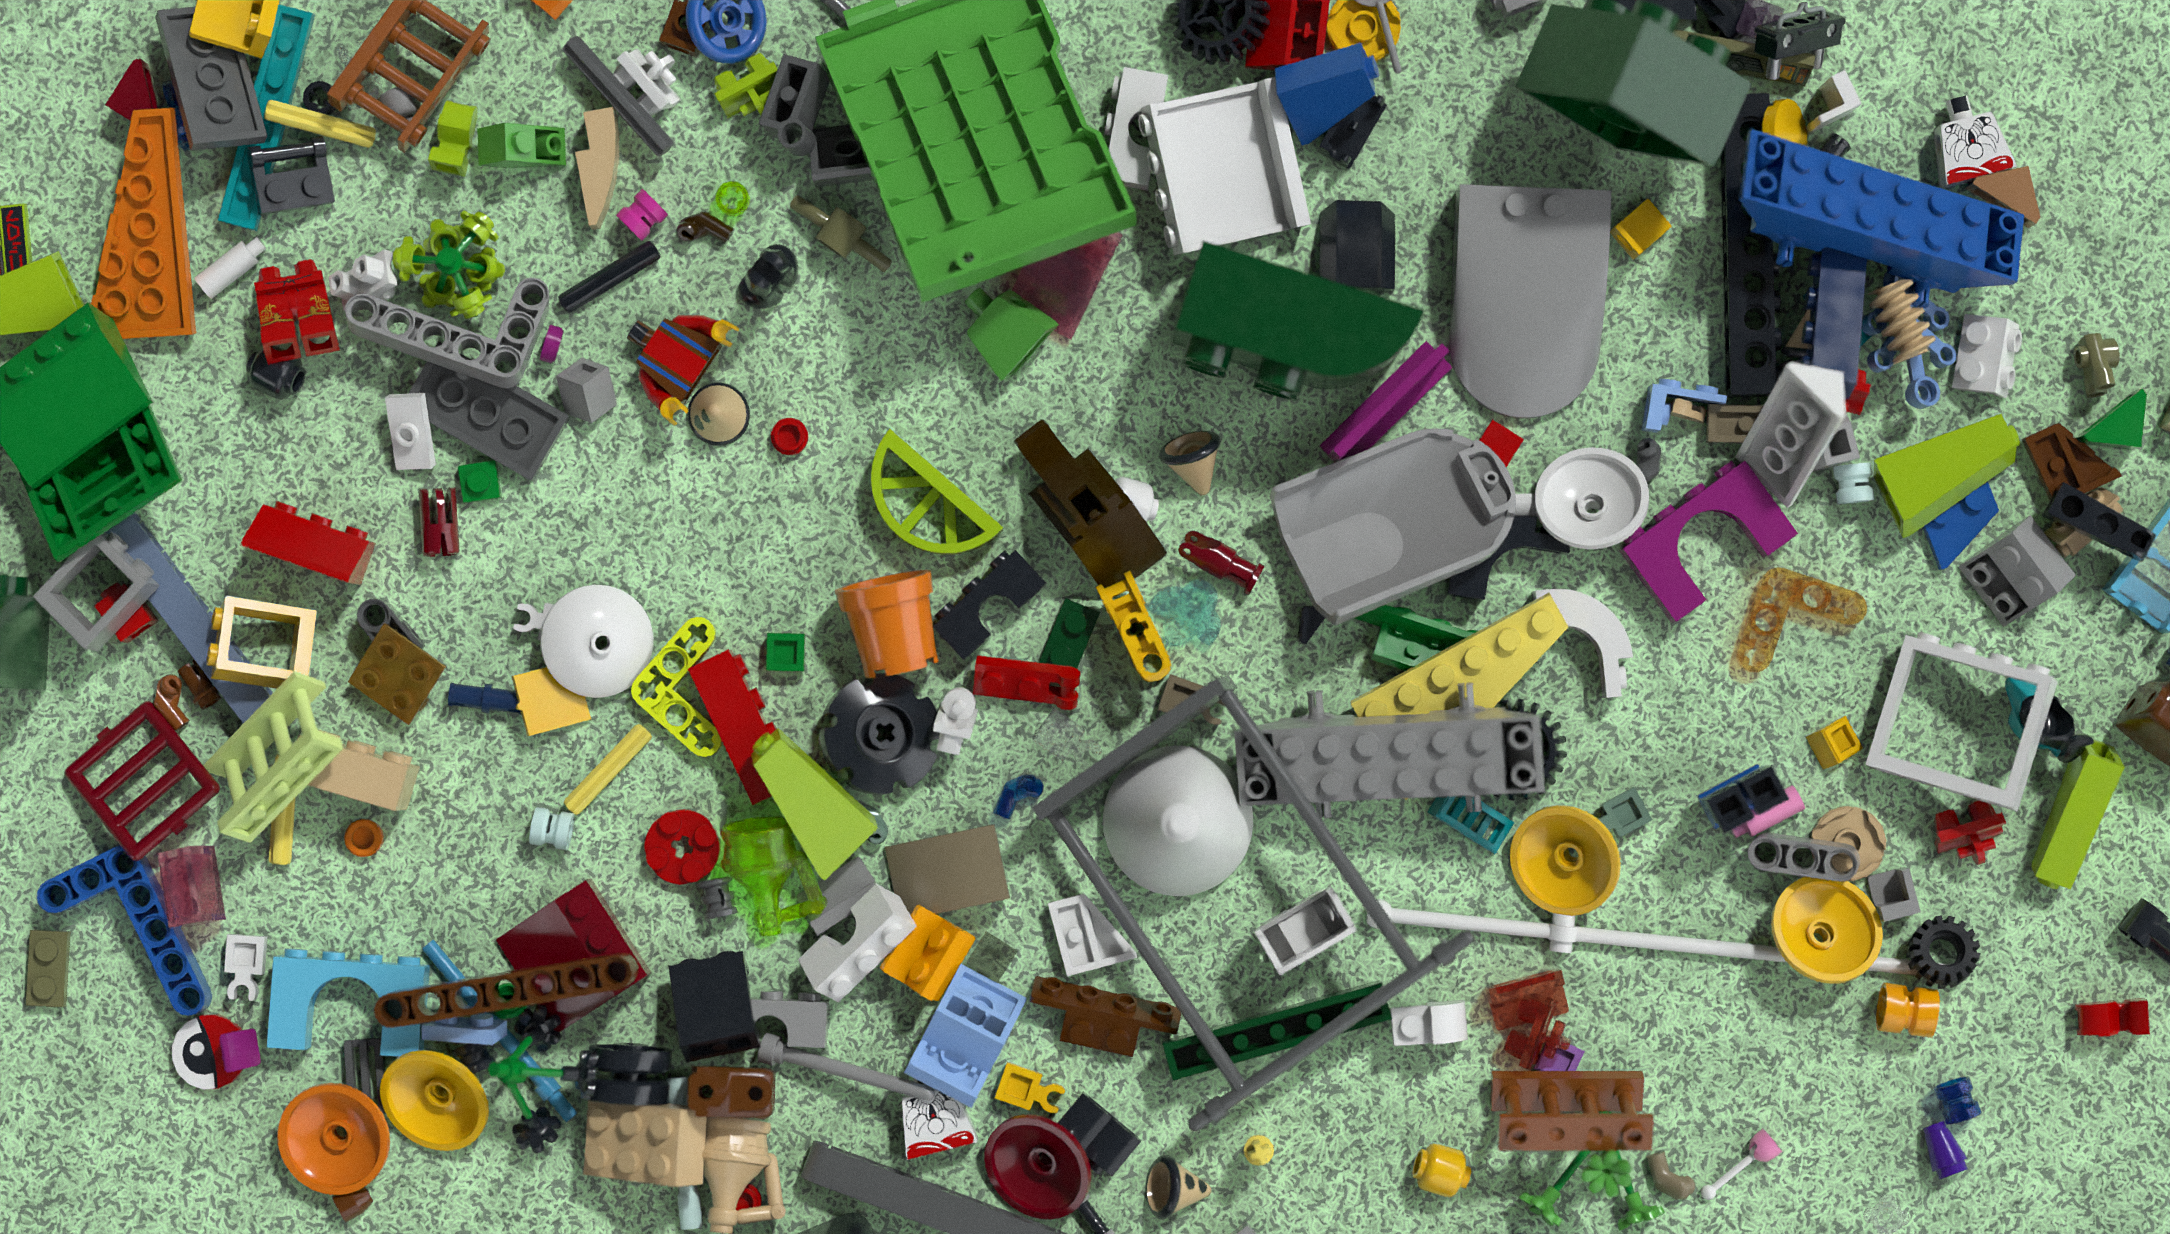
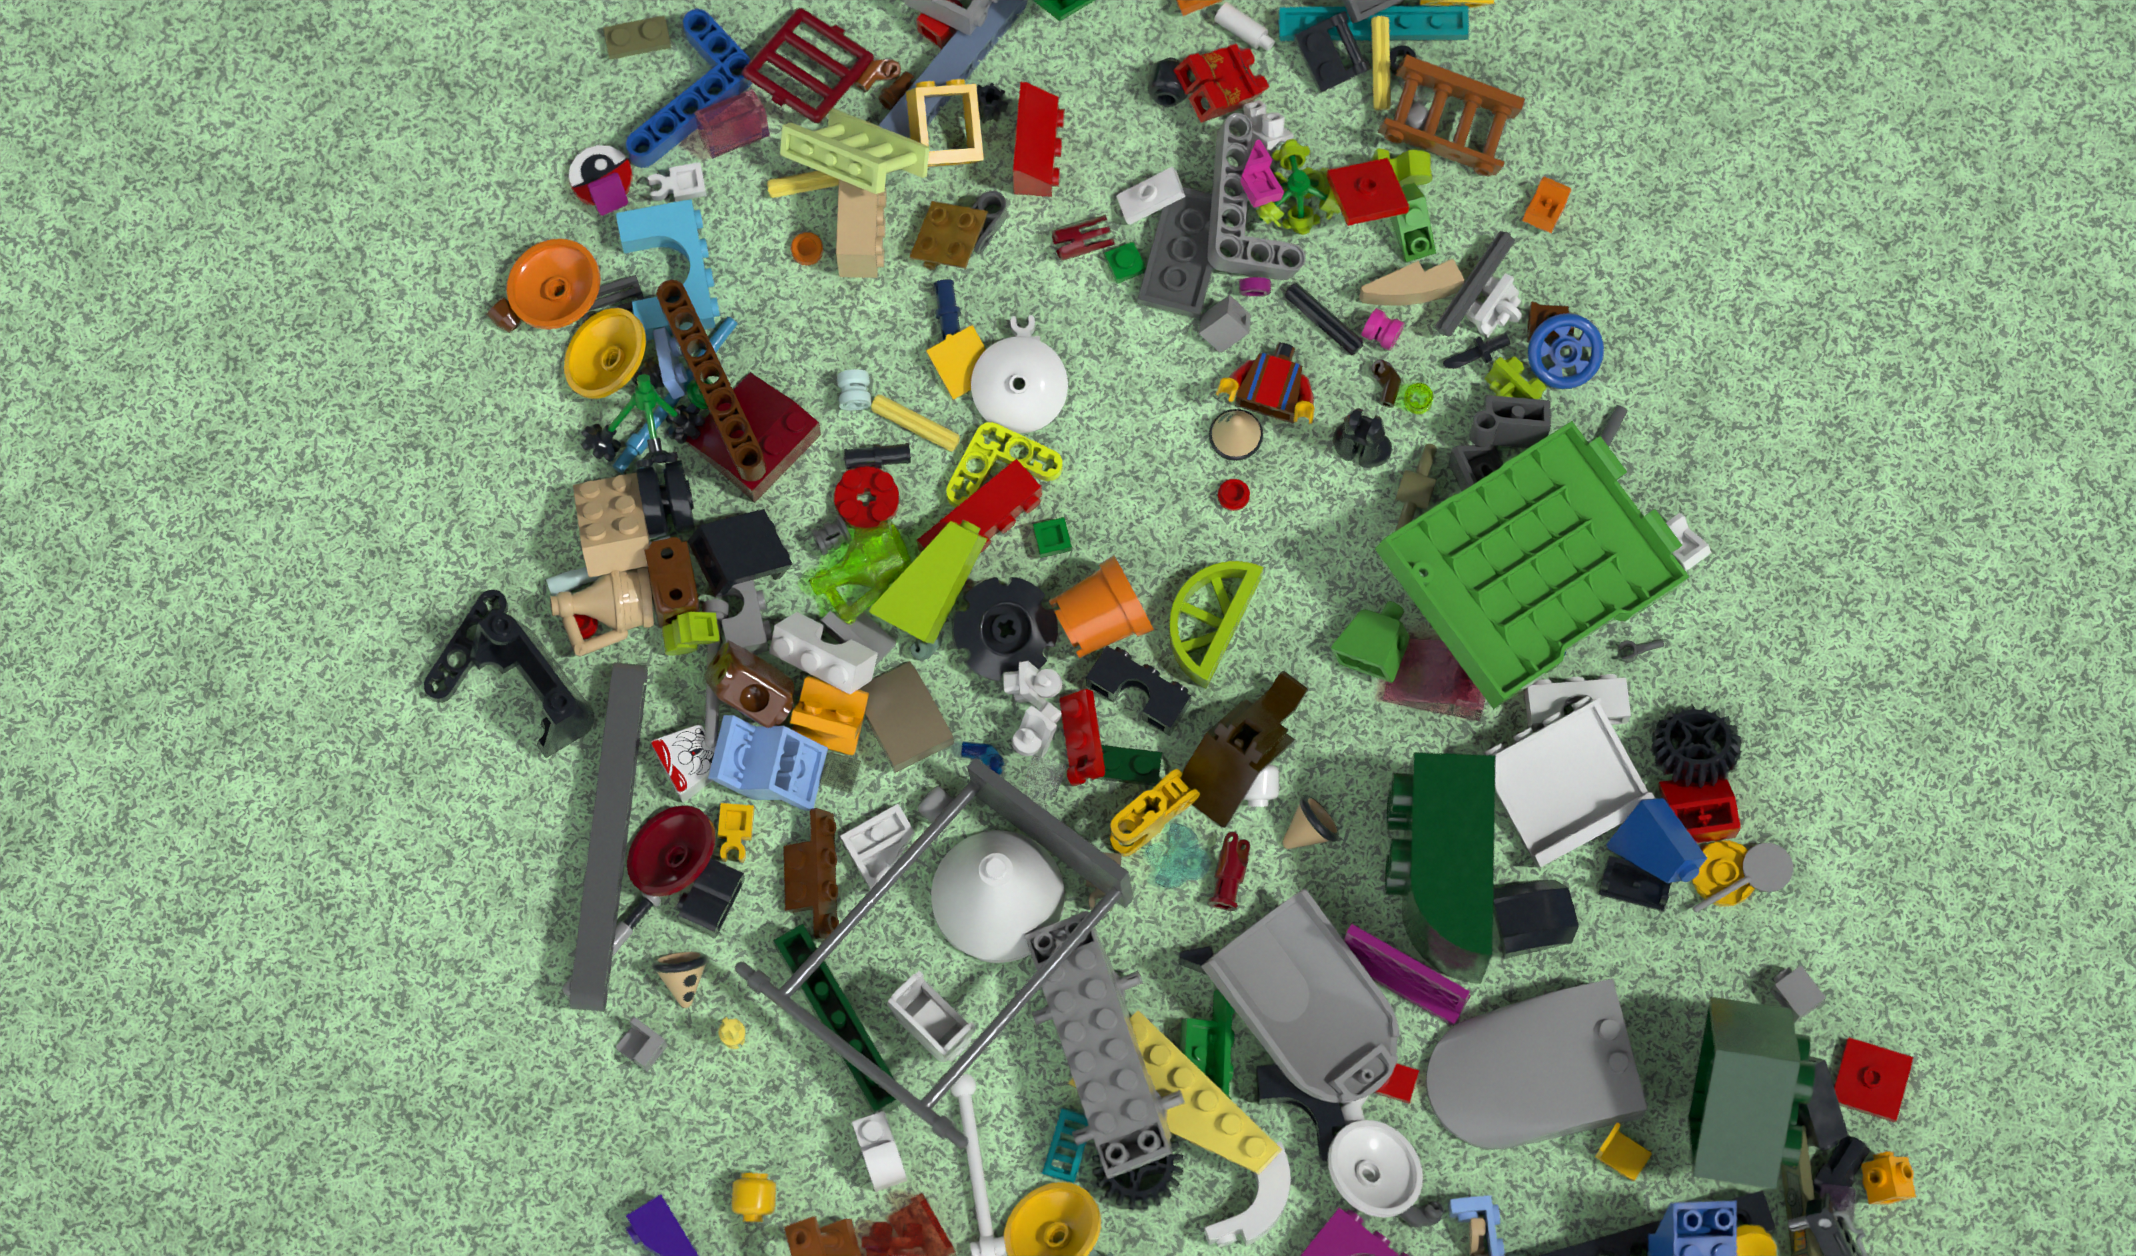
camera: 75 degrees right, 15 degrees down
(244, 576) = (994, 96): none -> black gear
(431, 305) = (1258, 178): none -> dark pink slope
(482, 186) = (1367, 191): none -> red plate
(636, 822) = (877, 456): none -> black pin
(694, 110) = (1481, 350): none -> black piece
(793, 1083) = (688, 631): none -> lime leg
(876, 1034) = (750, 685): none -> reddish brown piece
(1010, 731) = (1036, 730): none -> white hips
(1057, 861) = (934, 803): none -> light grey piece
(1087, 39) = (1639, 649): none -> dark grey hand

